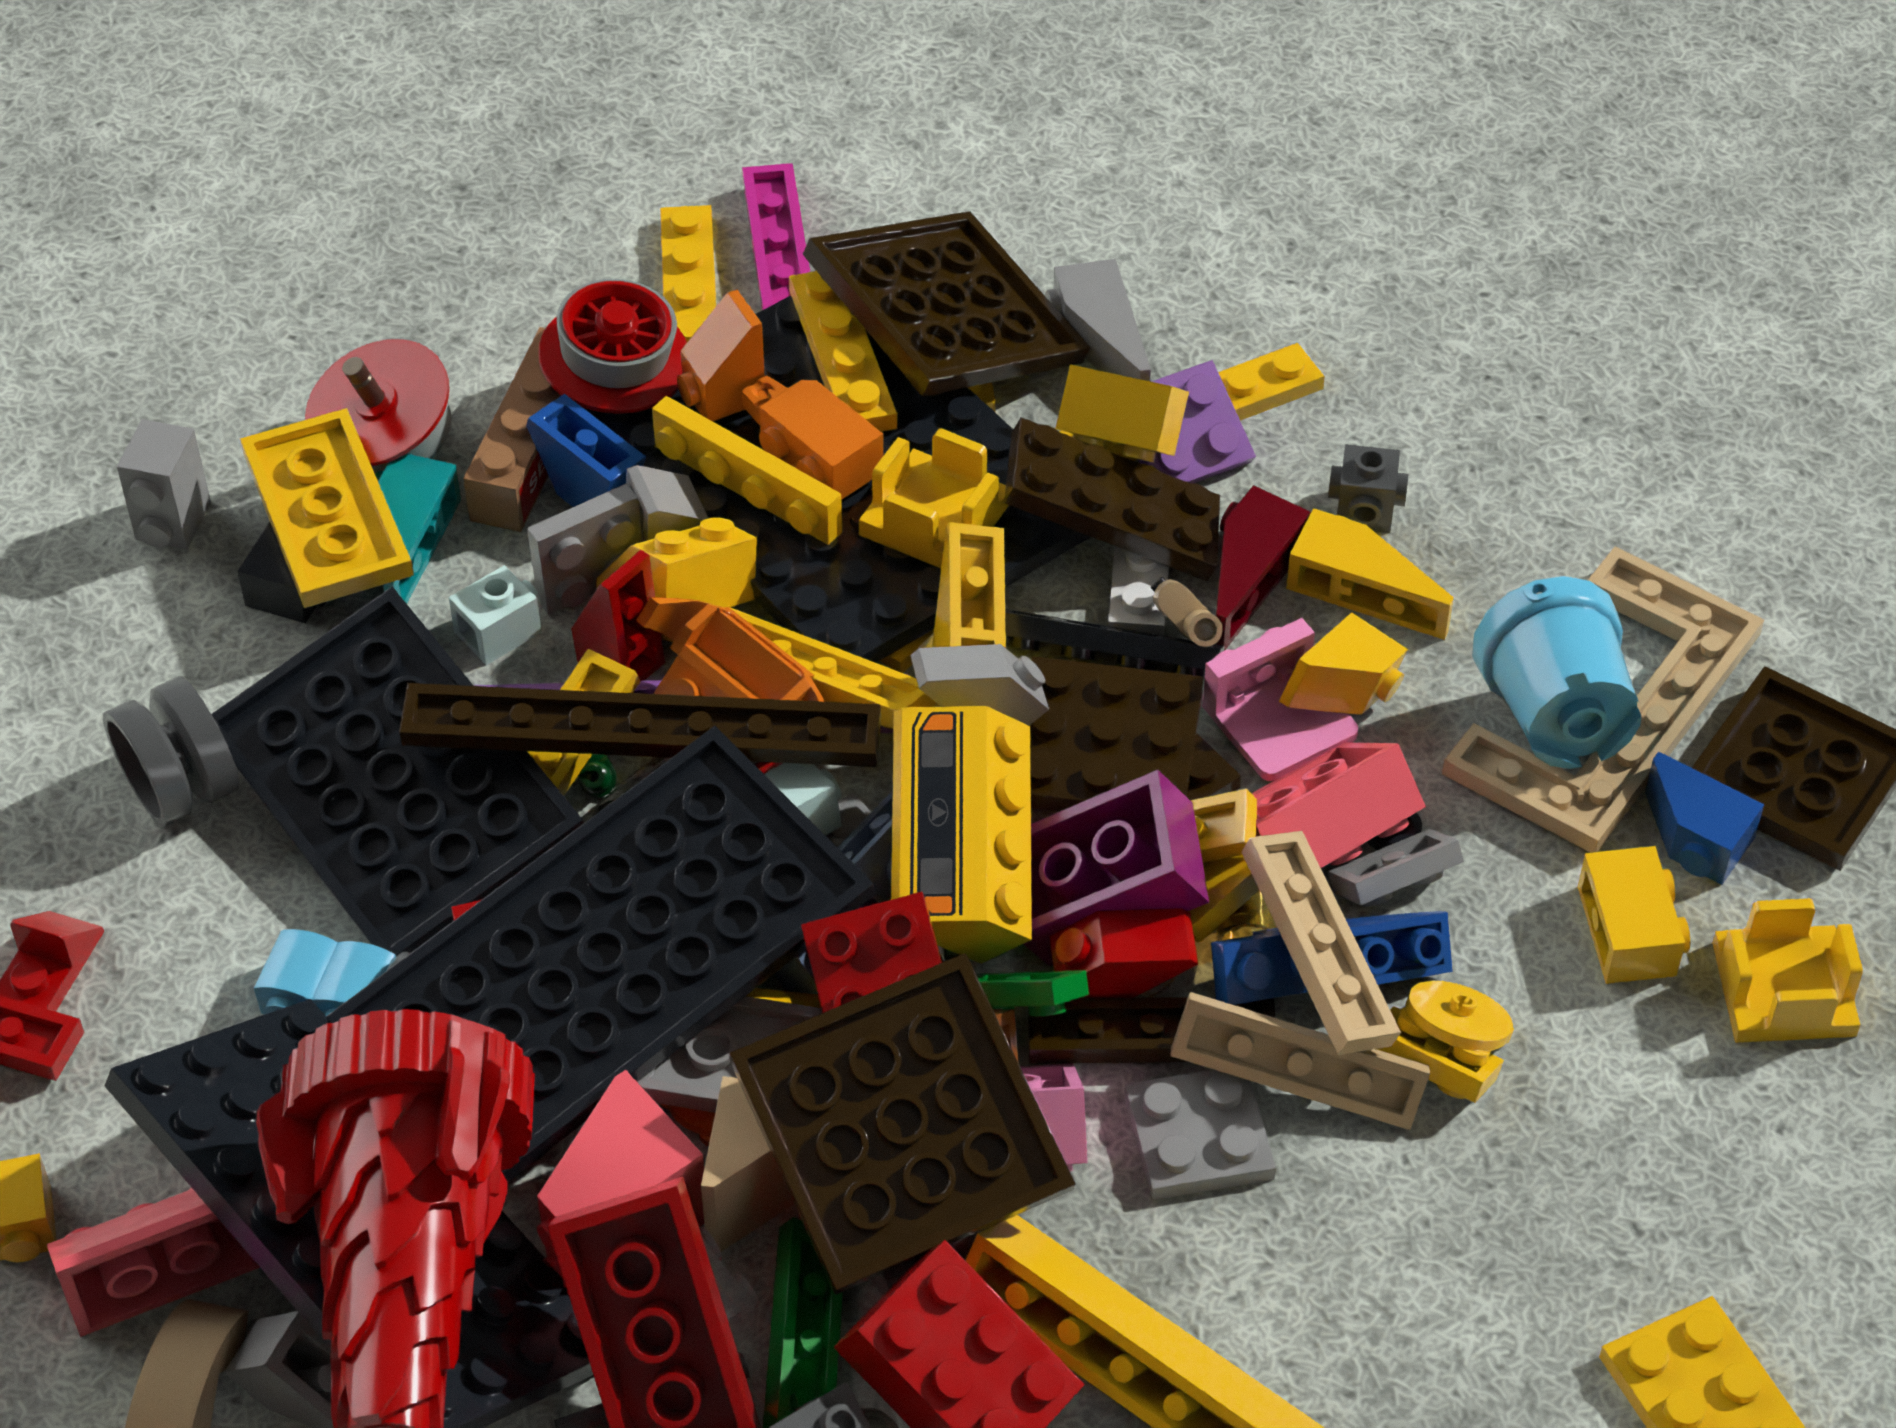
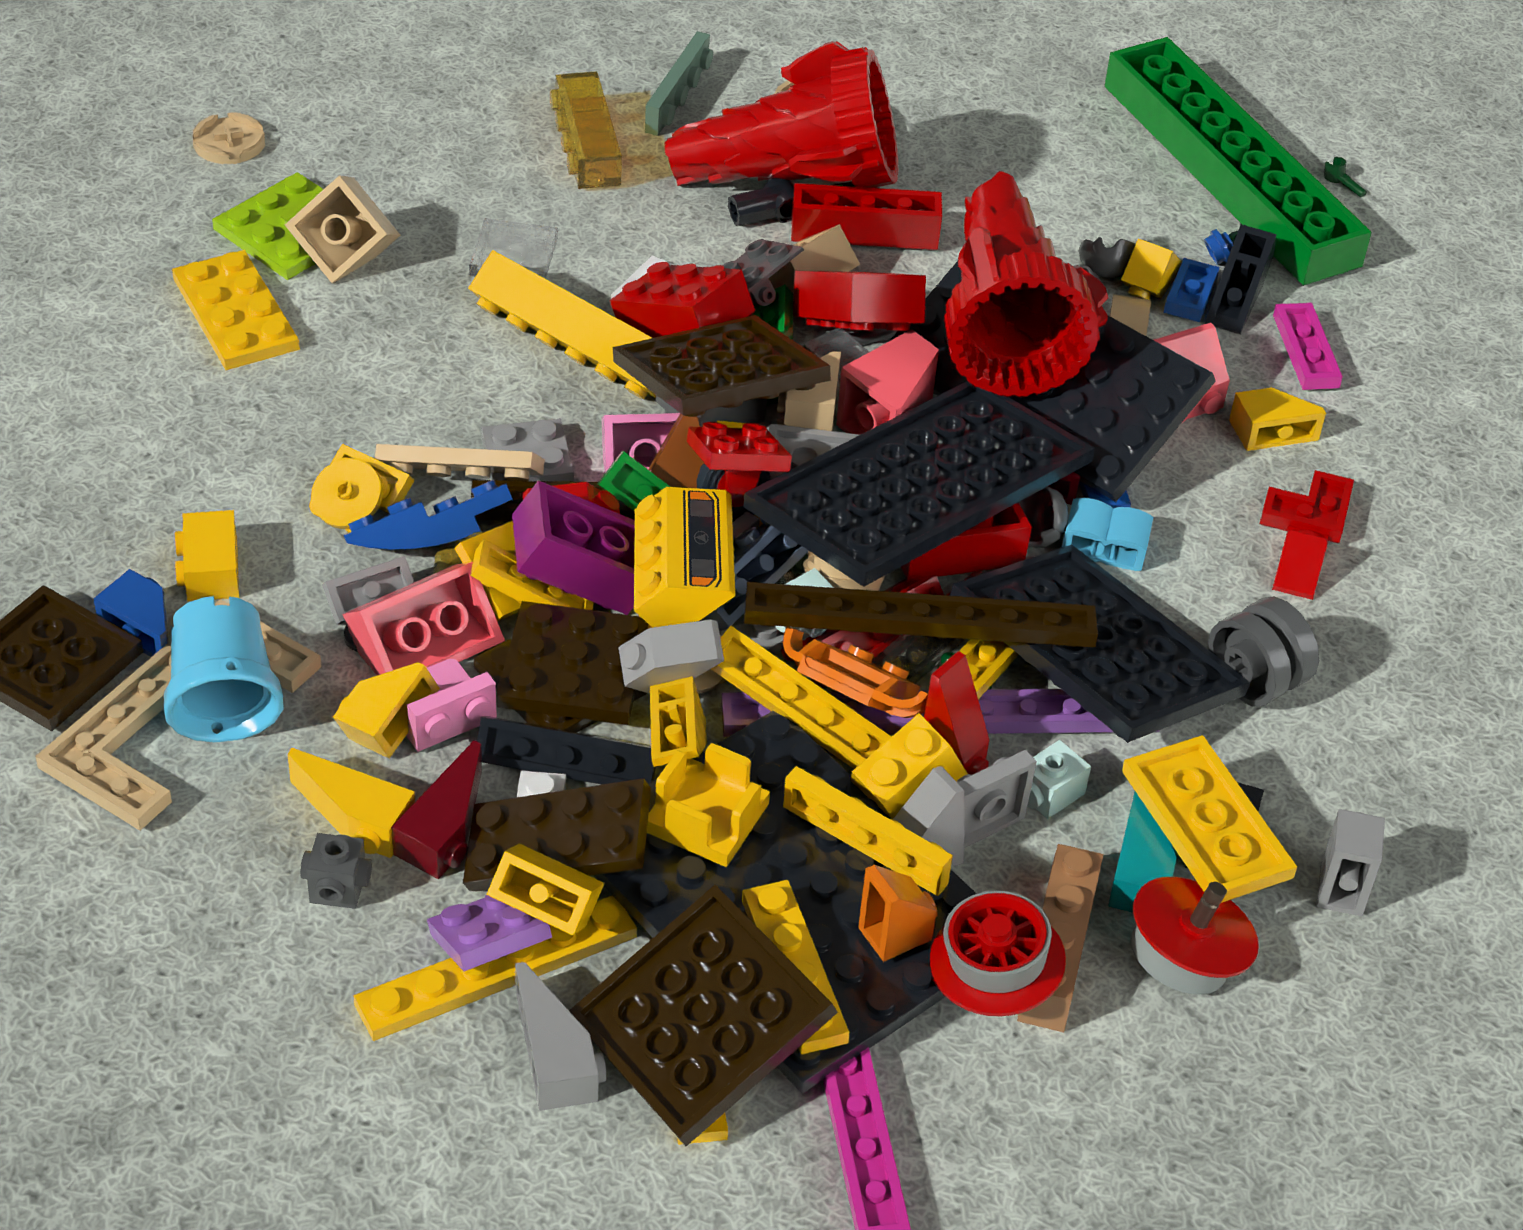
camera: 175 degrees right, 5 degrees down
(580, 451) = (999, 869): blue slope -> none
(688, 264) = (946, 1116): yellow plate -> none
(815, 432) = (811, 857): orange hinge -> none
(1186, 612) = (501, 757): tan piece -> none
(1320, 942) = (440, 484): tan plate -> none
(1788, 975) = (113, 521): yellow panel -> none

